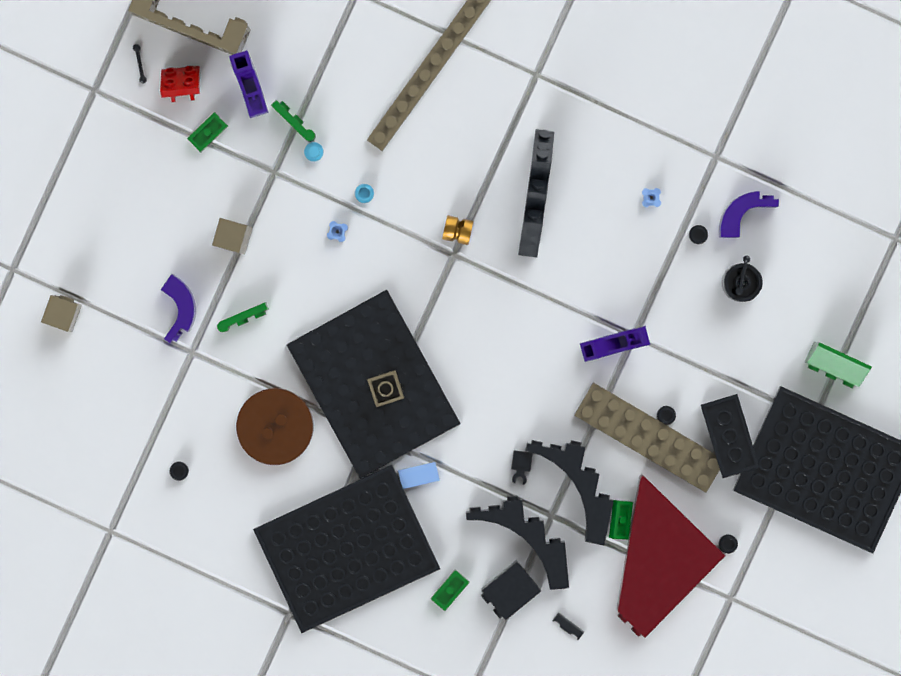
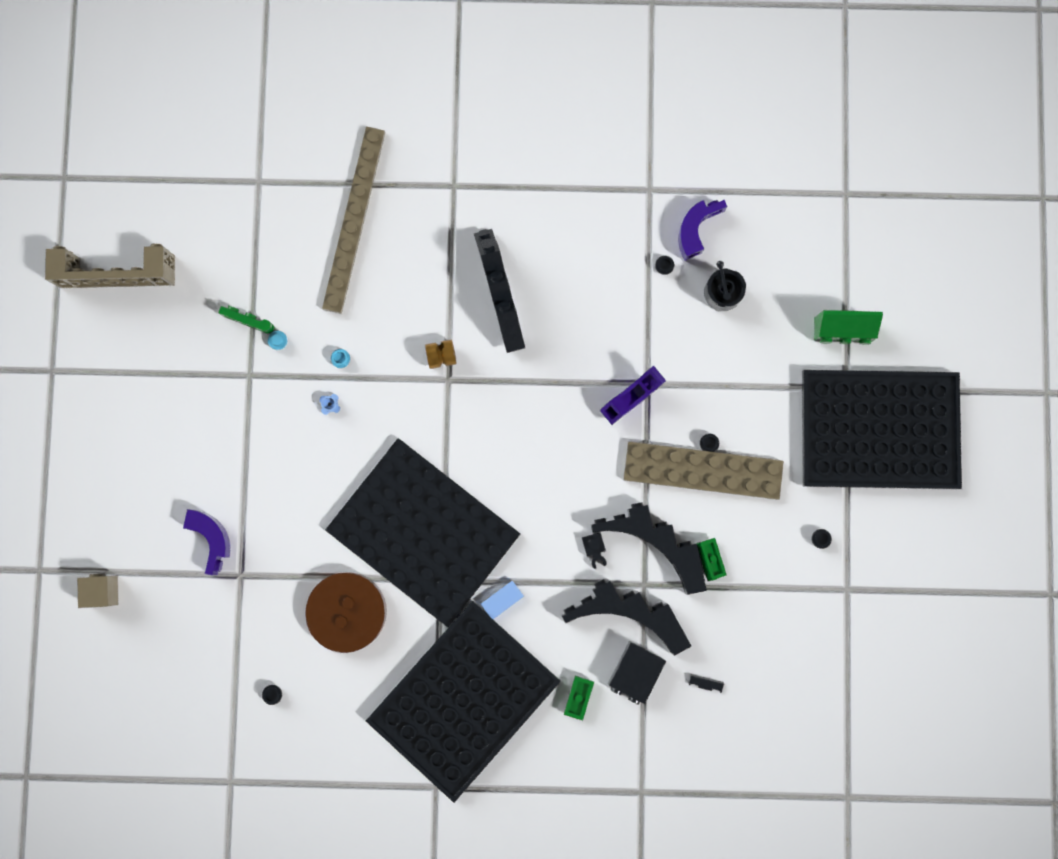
camera: 20 degrees left, 5 degrees down
(137, 48) = (75, 316): black hinge -> none
(180, 82) = (124, 327): red plate -> none
(207, 132) = (171, 364): green plate -> none
(232, 236) = (231, 449): dark tan head -> none
(242, 318) = (273, 521): green plate -> none
(249, 83) = (189, 300): dark purple arch -> none
(385, 388) = (434, 529): dark tan head -> none
(647, 201) = (604, 256): light blue plate -> none
(662, 560) = (767, 582): dark red slope -> none
(730, 436) = (778, 436): black plate -> none

